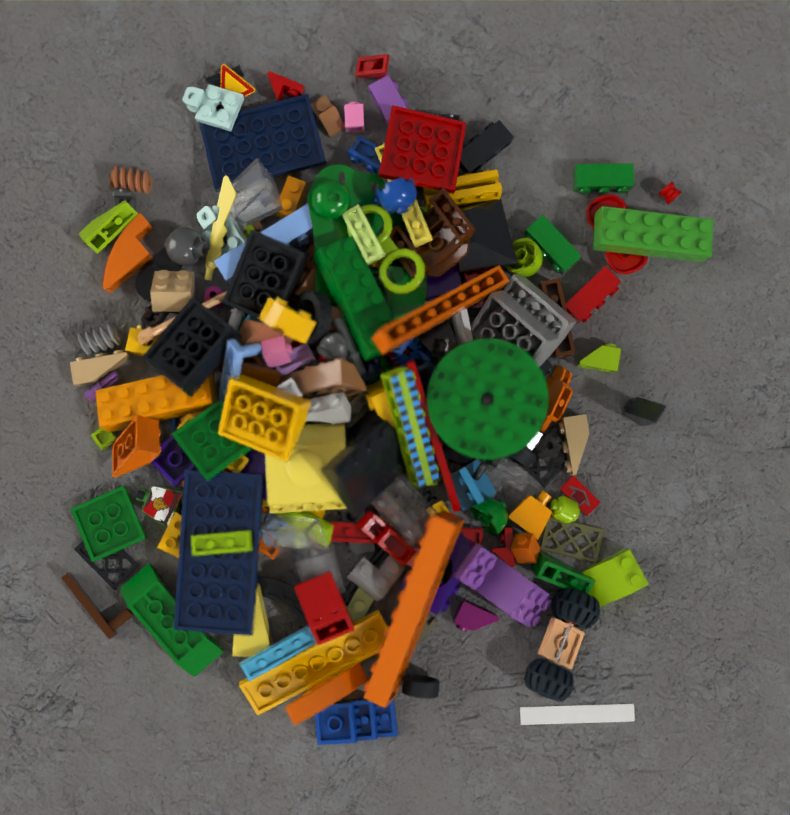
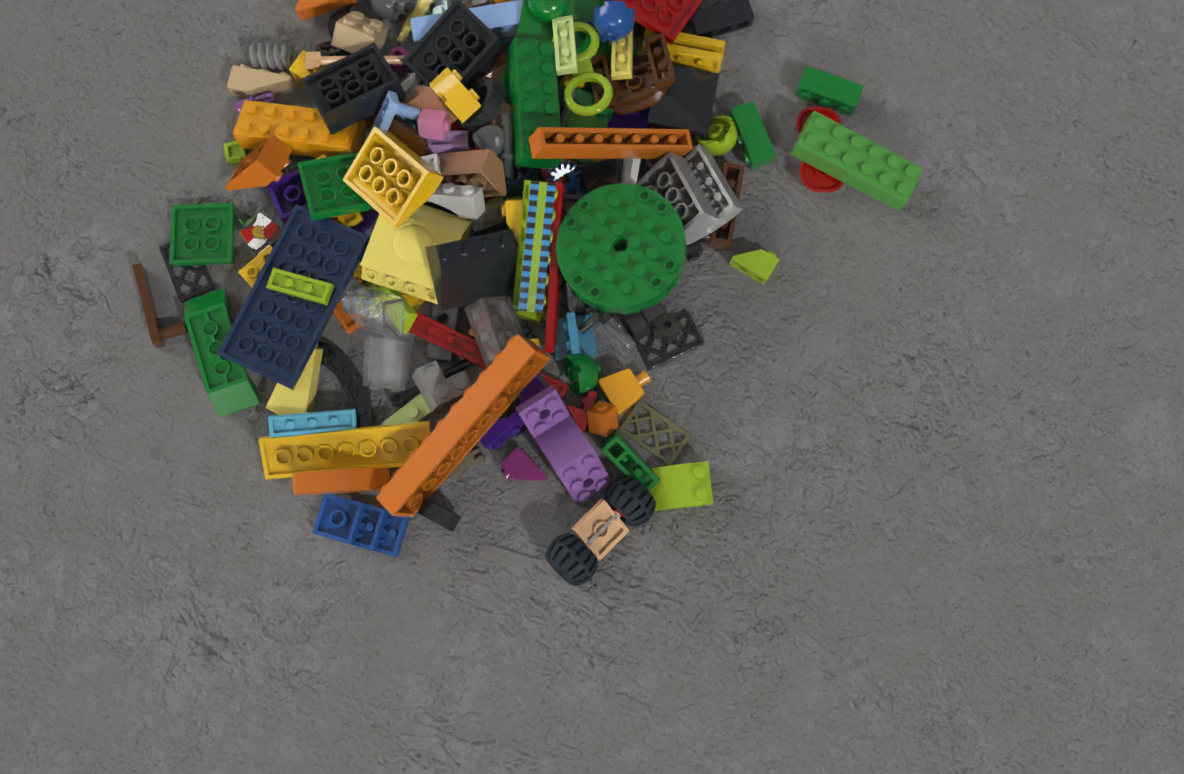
camera: 25 degrees right, 5 degrees down
(324, 608) = (375, 394): red slope -> none
(386, 538) = (464, 348): red slope -> none
(558, 395) = (694, 282): orange hinge -> none
(564, 509) = (659, 398): lime head -> none
(575, 435) = (700, 326): tan slope -> none
(577, 714) = (588, 612): white sticker -> none
(578, 492) = (680, 391): red tile -> none
(592, 295) = (772, 199): red brick -> none
(643, 411) = (776, 328): black slope -> none
(669, 192) = (890, 130): red wheel -> none

